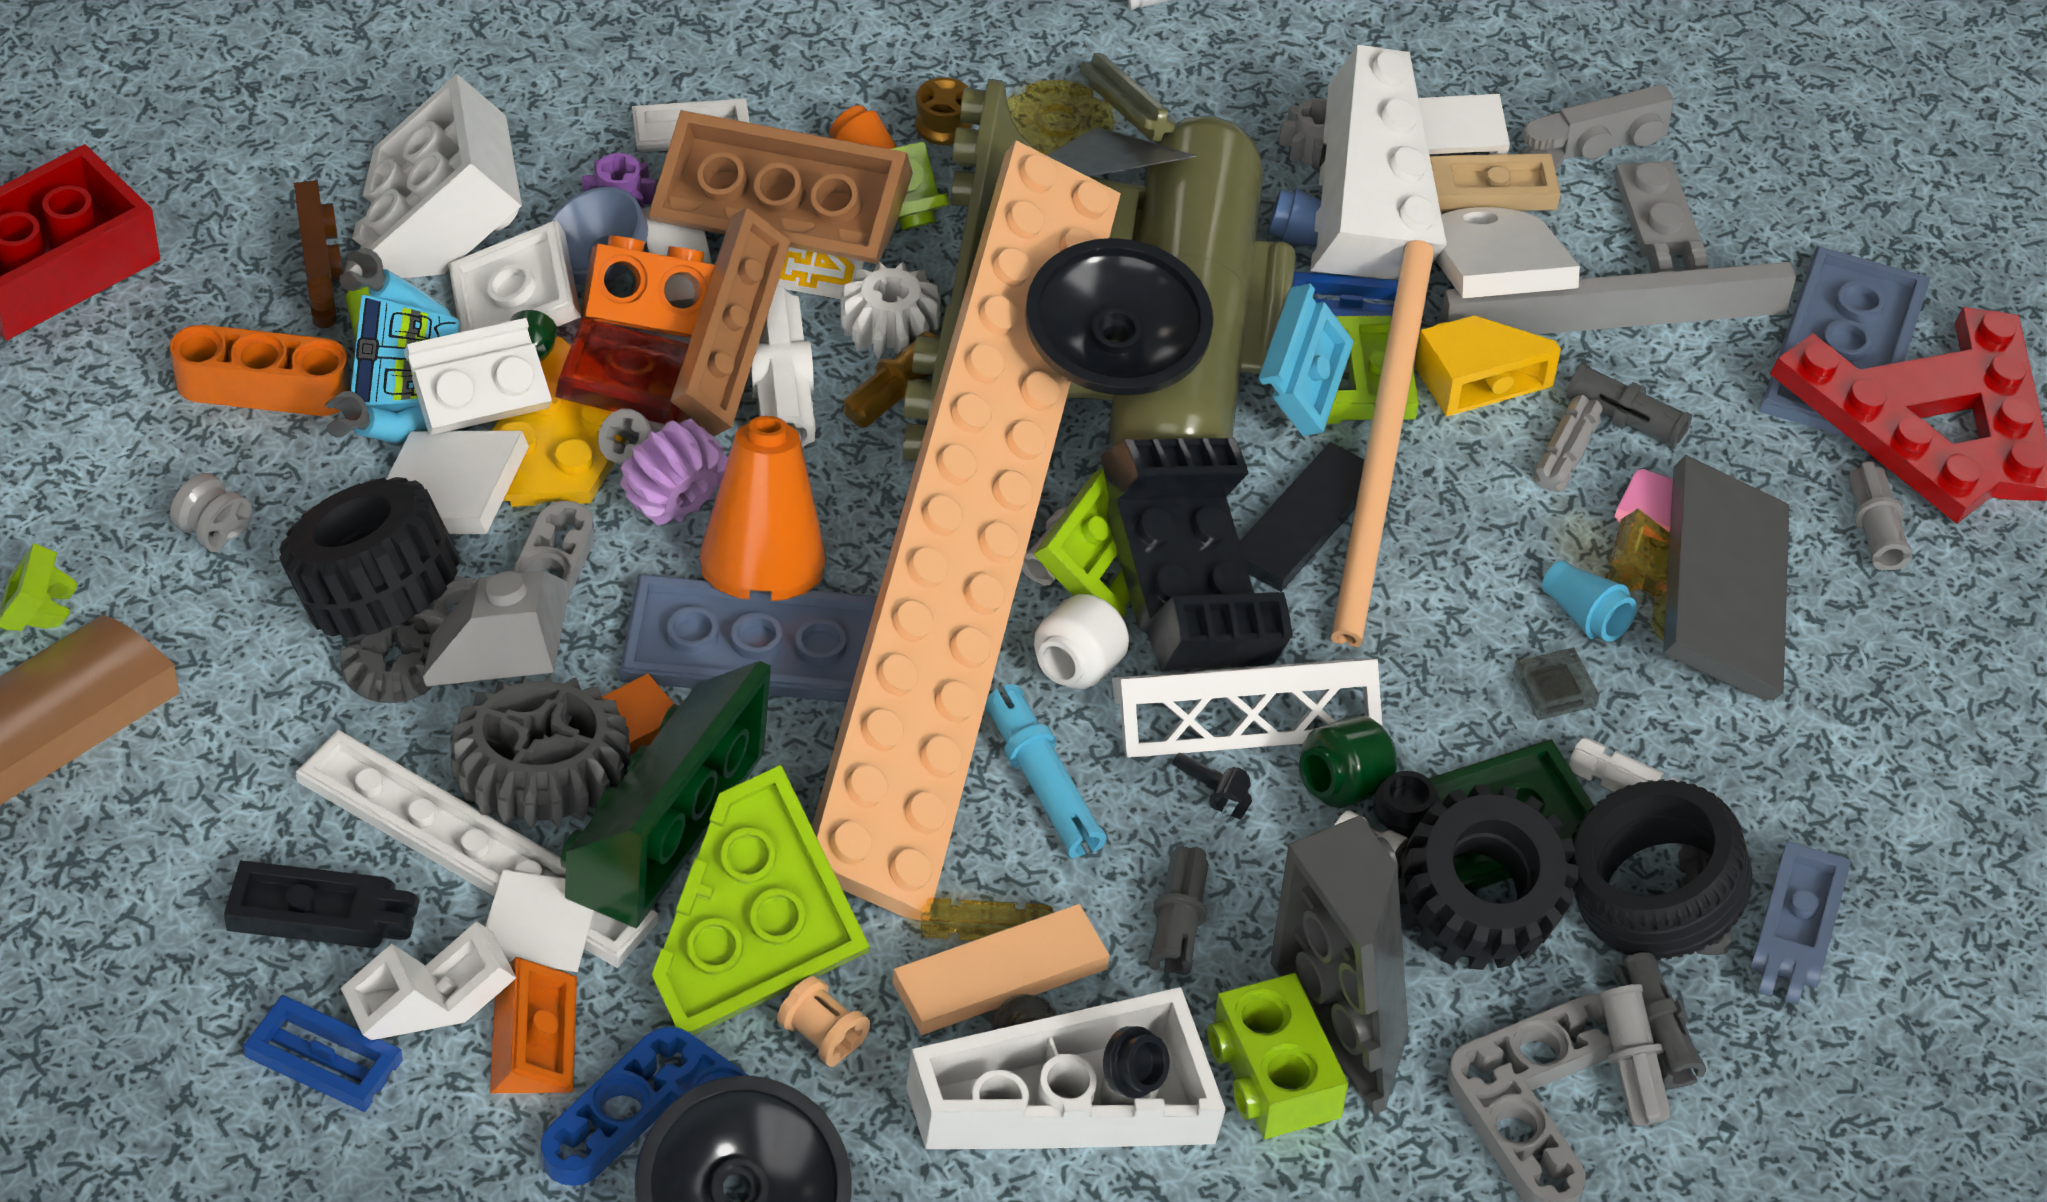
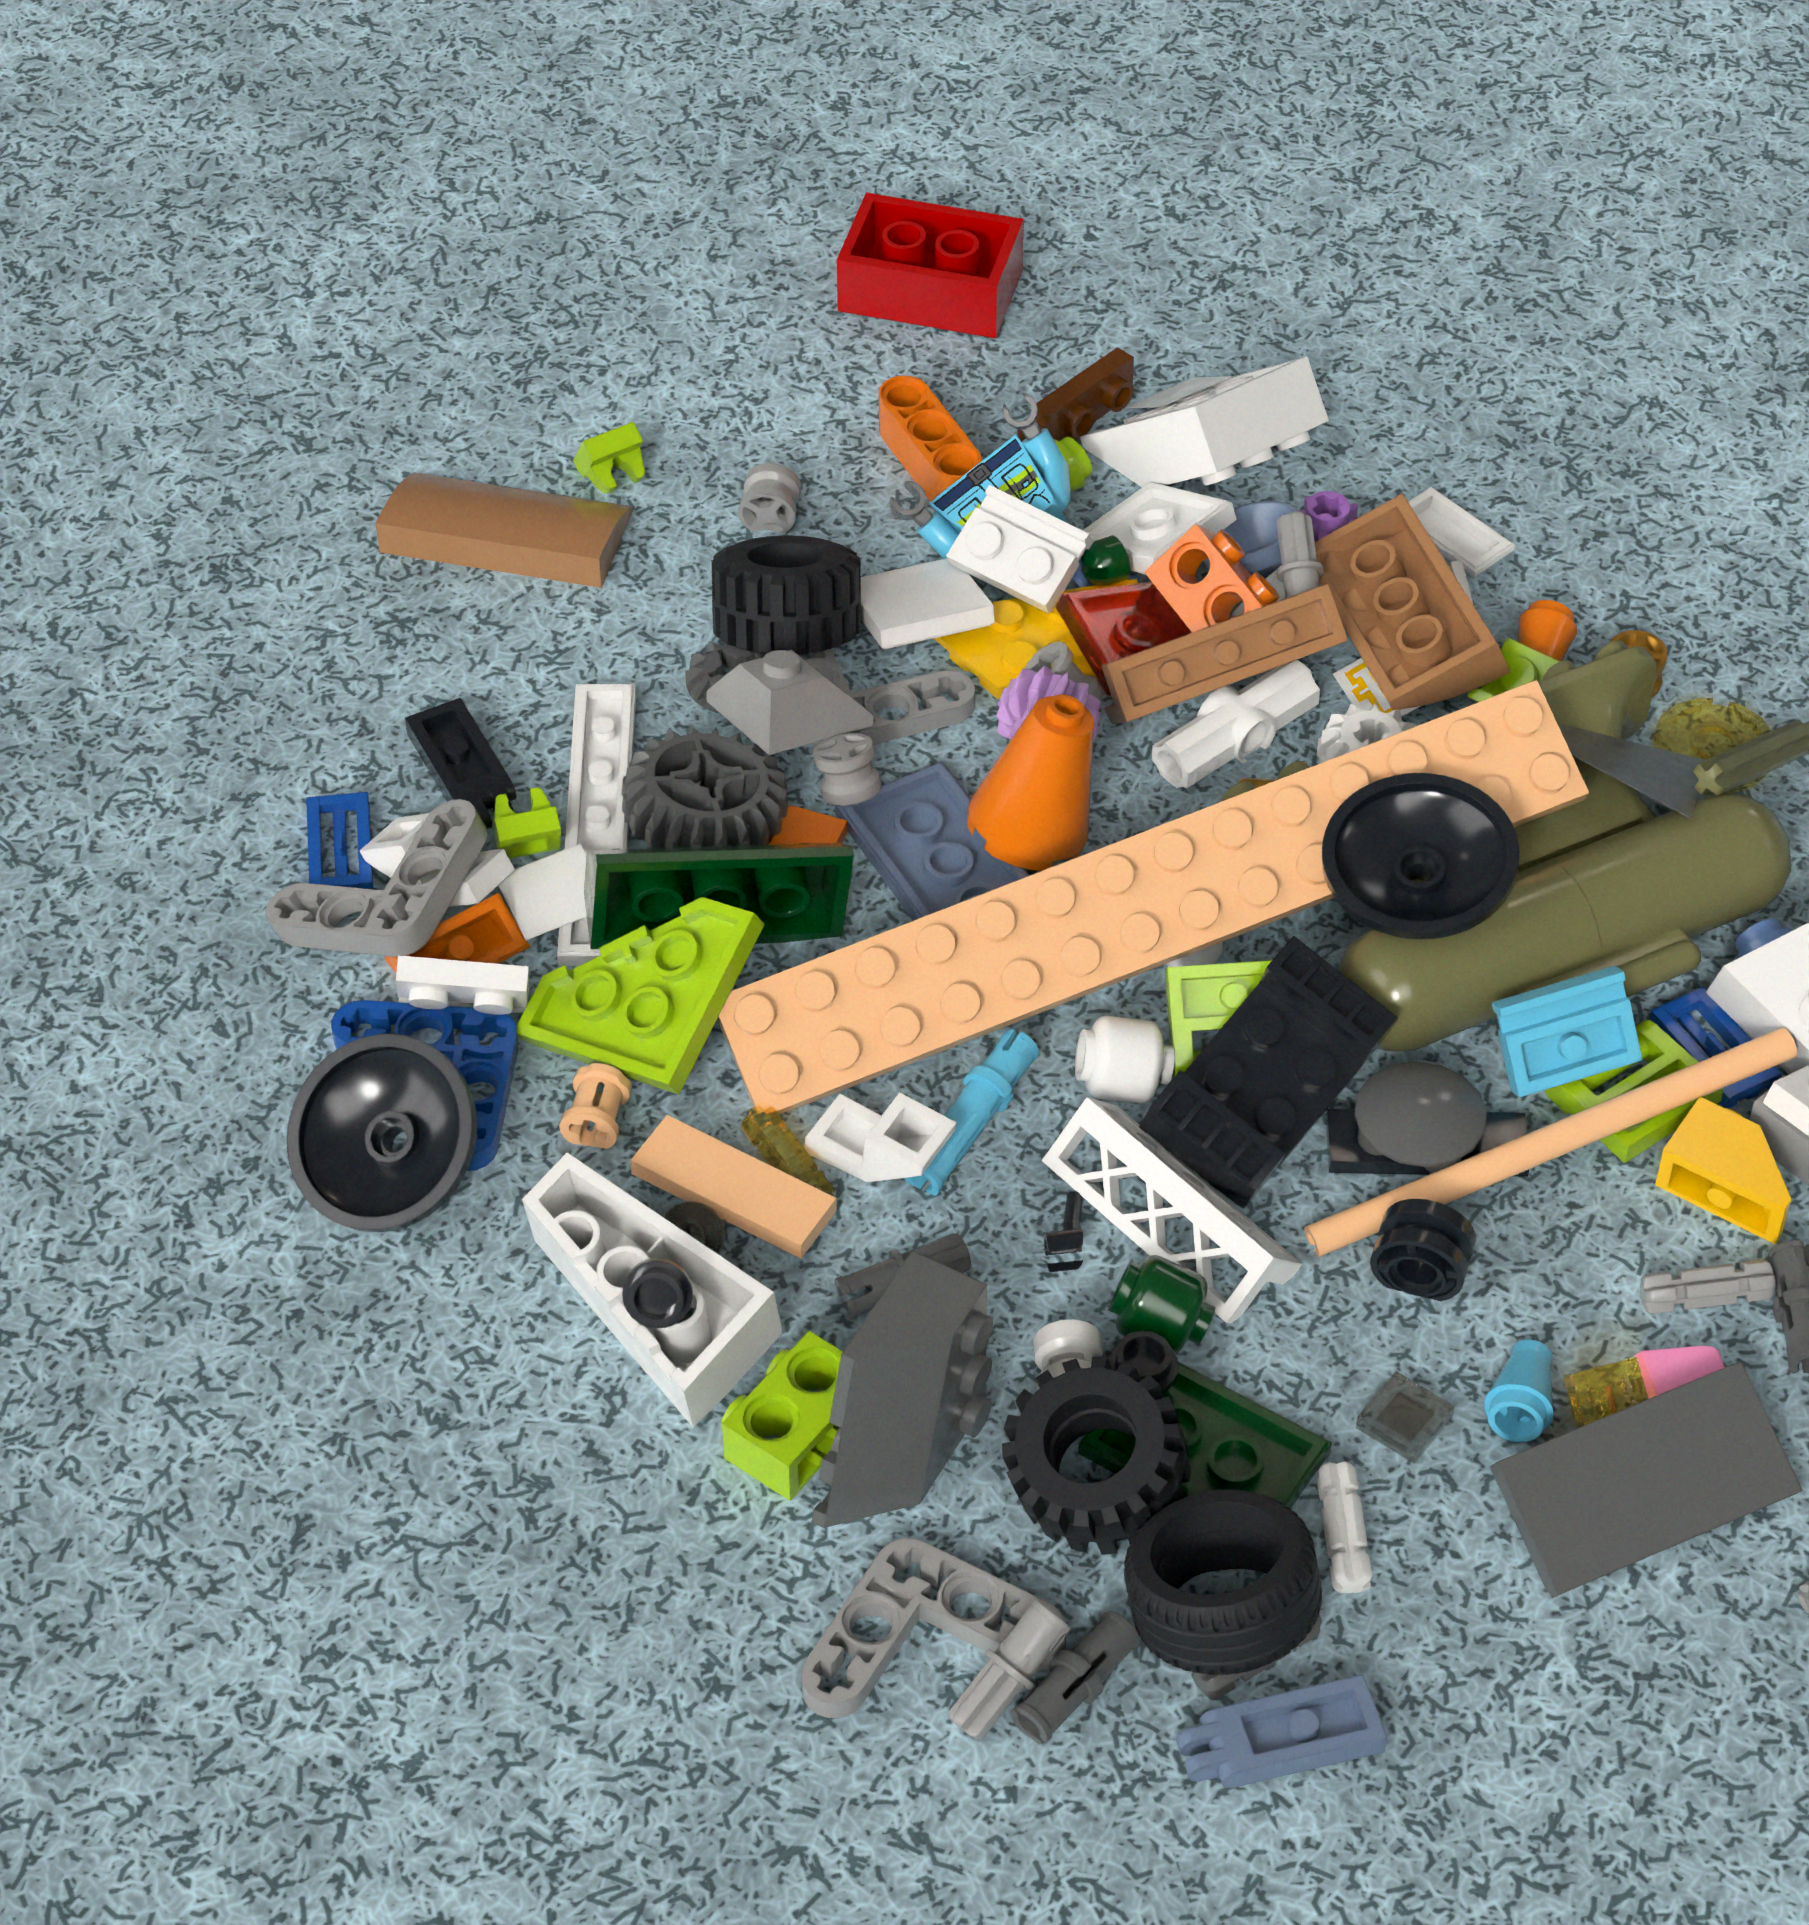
camera: 60 degrees right, 0 degrees up
(368, 183) = (1177, 392): none -> white sticker
(458, 890) = (527, 831): none -> lime tile
(469, 1050) = (401, 915): none -> light grey beam
(602, 635) = (847, 769): none -> light grey wheel
(607, 1052) = (480, 985): none -> white plate
(685, 224) = (1298, 554): none -> light grey axle
(1050, 834) = (879, 1146): none -> white slope
(1294, 499) = (1420, 1115): none -> dark grey dish
(1425, 573) = (1423, 1249): none -> black wheel

